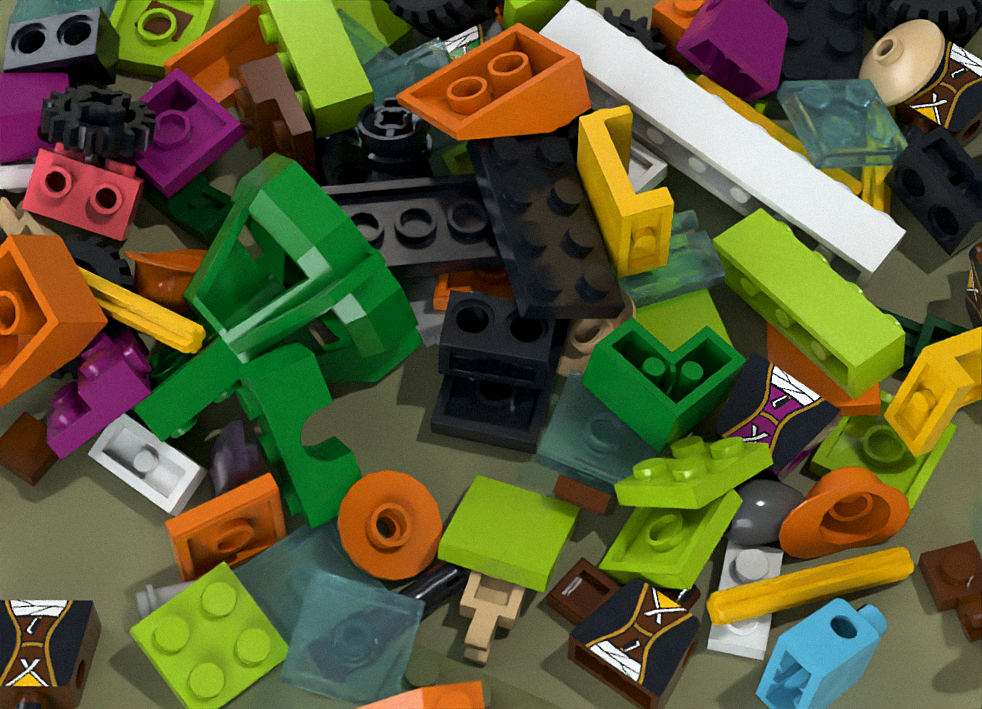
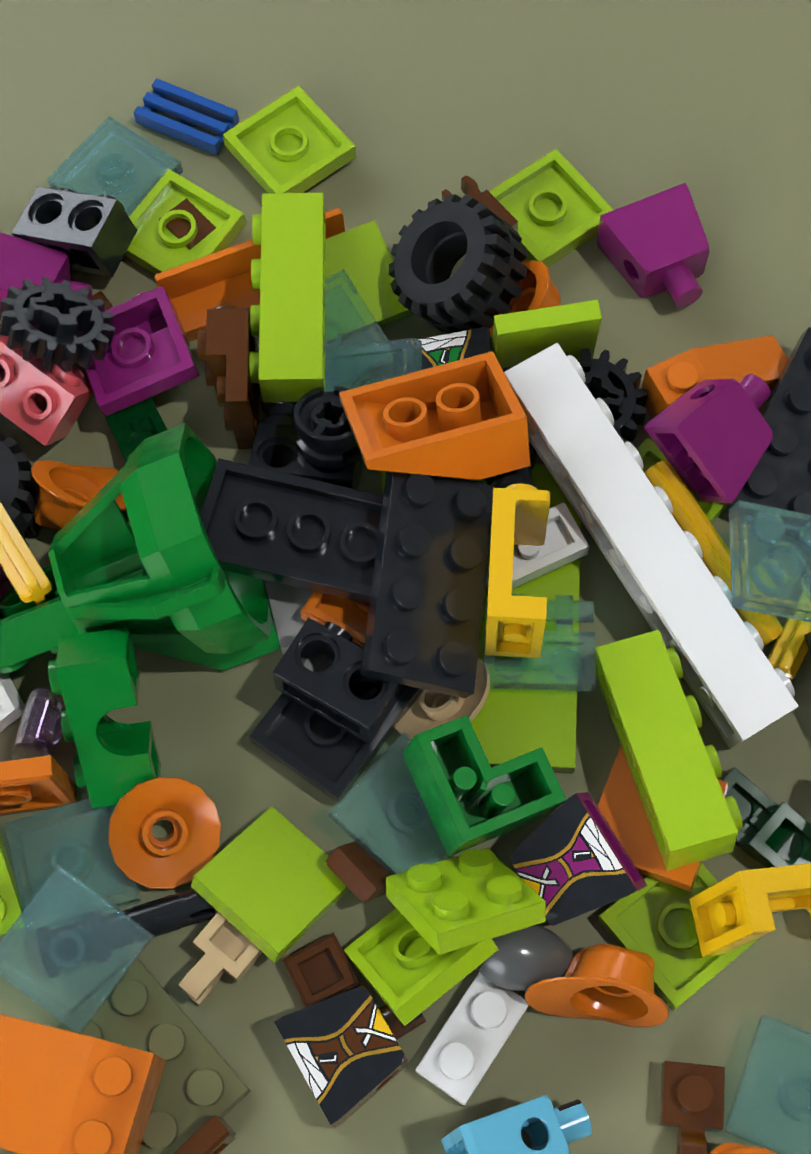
camera: 25 degrees right, 10 degrees up
(809, 585) = (534, 1057): yellow axle -> none

